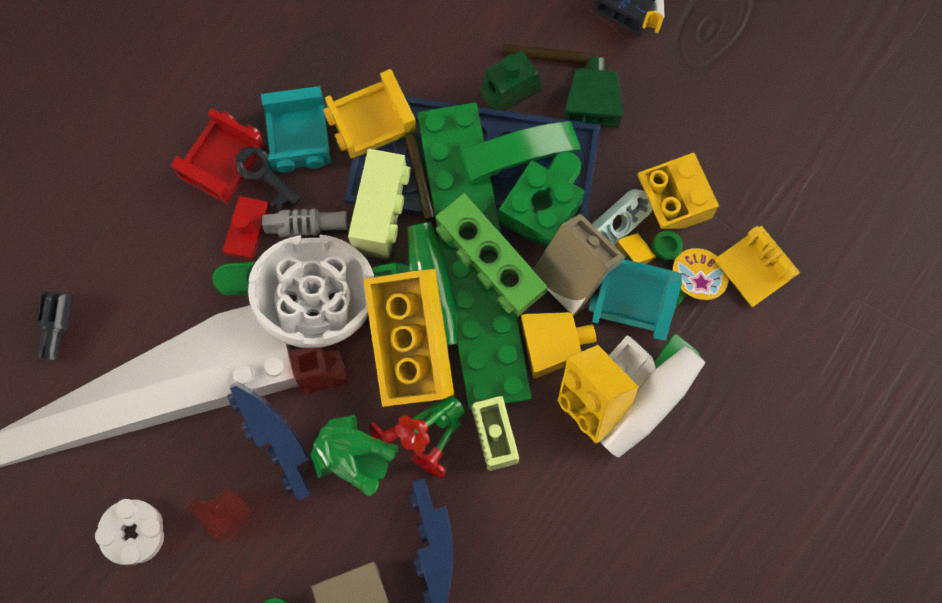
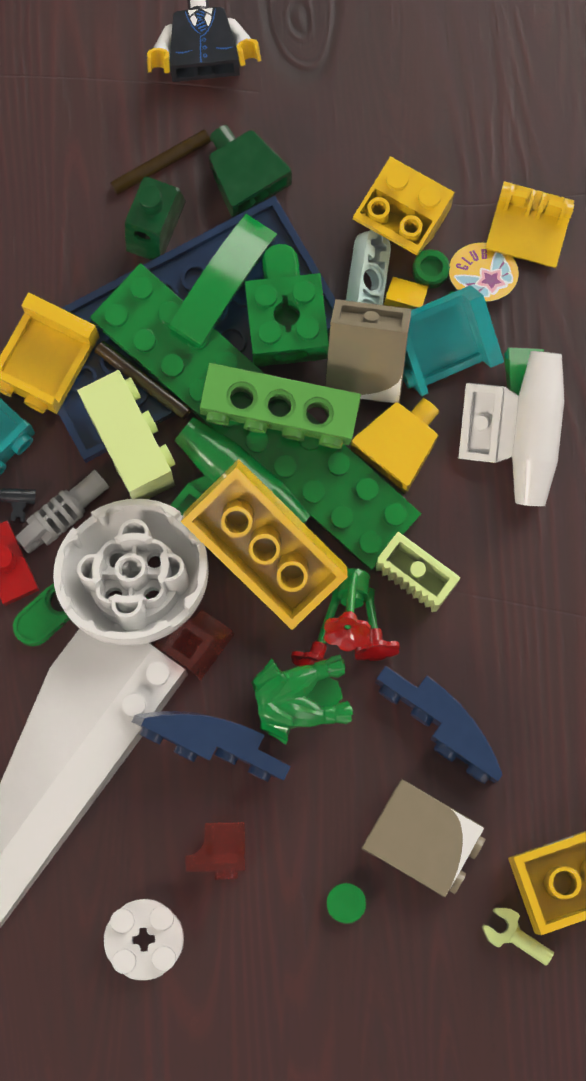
camera: 40 degrees left, 5 degrees up
(596, 392) = (480, 460): yellow slope -> none

